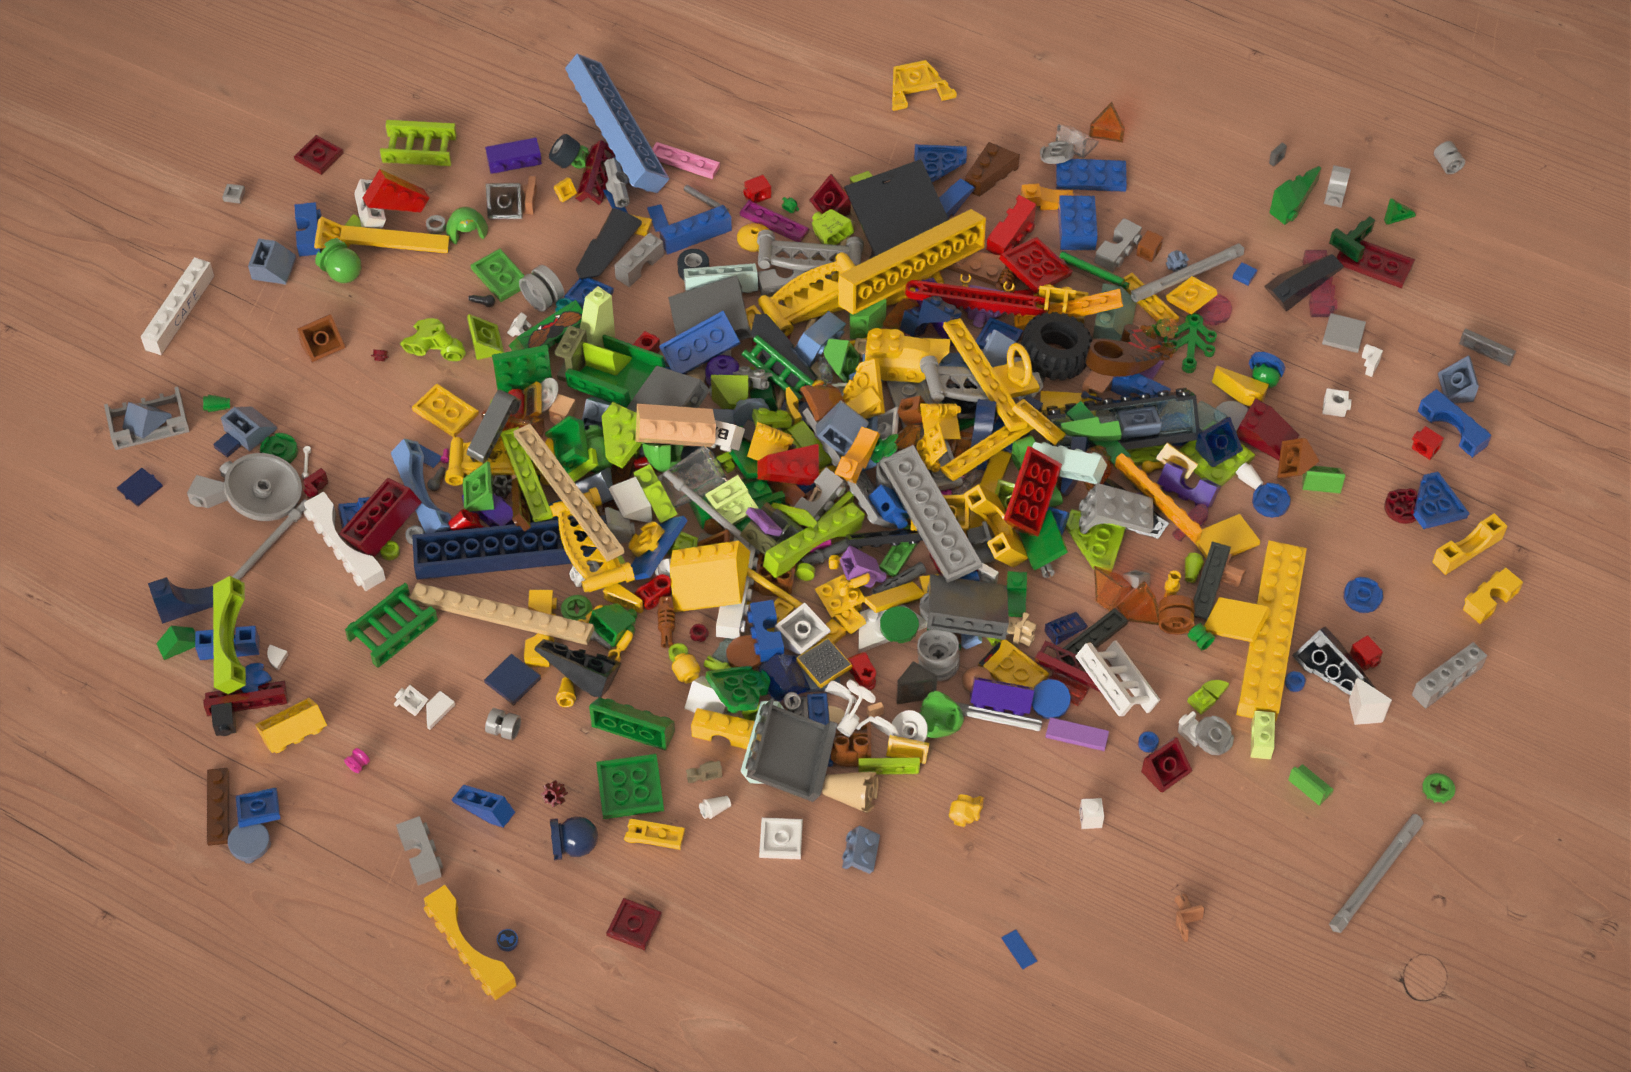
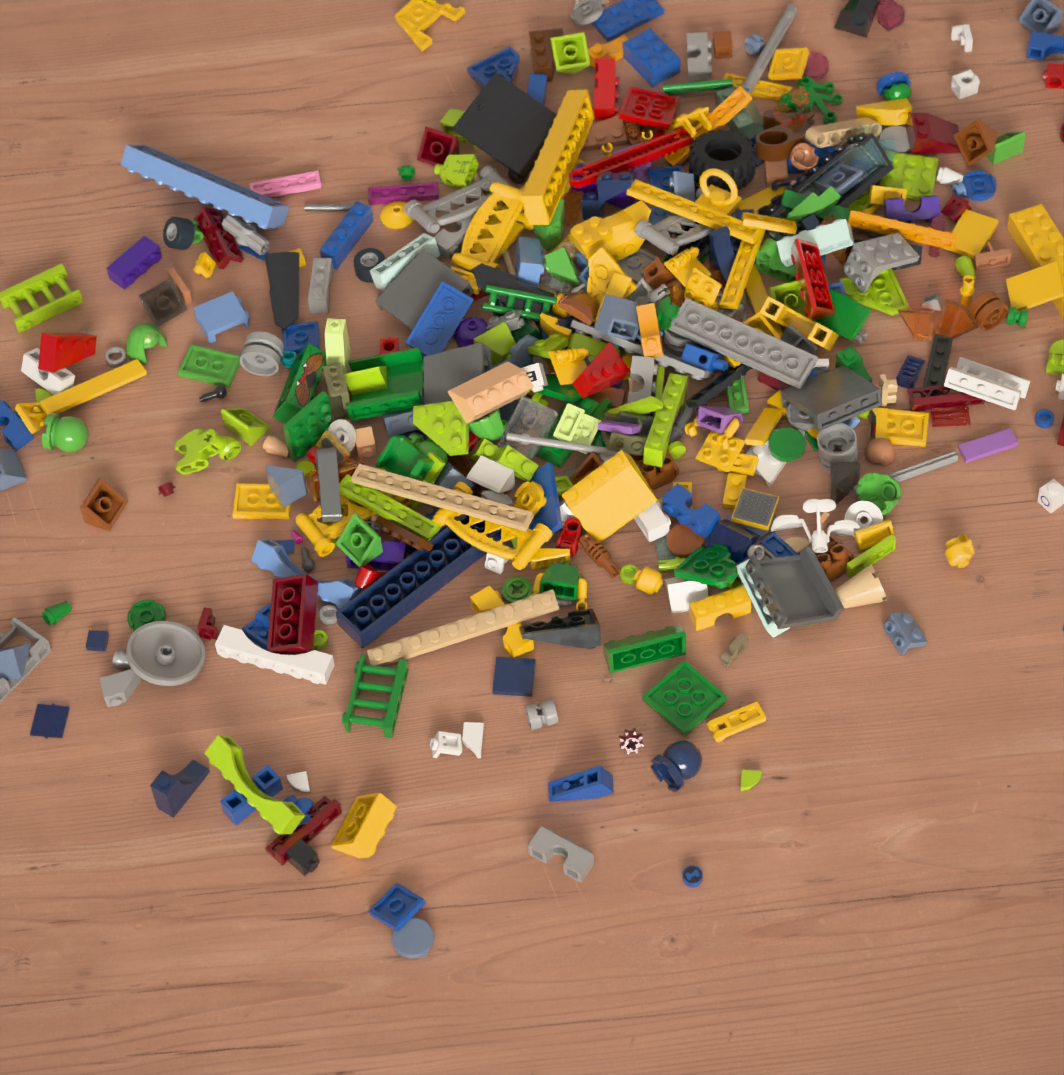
camera: 30 degrees left, 0 degrees up
(176, 641) = (202, 823): green slope -> none
(217, 806) = (359, 929): reddish brown plate -> none
(247, 426) = (104, 614): sand blue slope -> none
(293, 516) = (210, 662): light grey bar -> none
(307, 450) = (171, 603): white hinge -> none
(357, 760) = (445, 818): dark pink wheel -> none
(465, 406) = (286, 484): none -> sand blue slope
(488, 370) = (275, 446): none -> light nougat cone
(492, 973) = (705, 908): yellow arch -> none
(518, 324) = (264, 397): white tile -> none
(541, 238) = (220, 315): none -> medium blue panel
(566, 693) = (569, 659): yellow cone -> none
(623, 889) = (749, 779): none -> lime tile
(634, 924) = (780, 799): dark red tile -> none
(658, 217) = (306, 246): blue sticker -> none
(698, 628) = (632, 544): dark red plate -> none
(711, 807) = (763, 672): white cone -> none
(712, 527) = (572, 459): reddish brown tile -> none
(757, 189) = (369, 174): red brick -> none
(773, 588) = (674, 477): yellow bar -> none
(781, 838) = (835, 663): white tile -> none
(801, 629) = (718, 492): white slope -> none
(863, 670) = (788, 496): red piece -> none
(890, 428) = (655, 296): none -> light grey axle
(902, 578) = (754, 412): dark grey pin -> none
(1001, 696) = (912, 450): dark purple brick -> none
(1006, 179) = (570, 53): none -> lime slope
(1051, 699) = (947, 431): blue tile -> none
(1123, 381) = (803, 156): none -> nougat hair
(1202, 386) = (838, 132): none -> tan beam
(1210, 579) = (990, 267): pearl dark grey tile -> none
(1218, 442) = (909, 163): clear blue slope -> none
(1230, 507) = (955, 208): none -> dark red bracket
(1244, 273) = (811, 26): blue tile -> none
(1247, 493) = (959, 190): none -> medium blue bush
(1344, 332) = (924, 29): light grey tile -> none

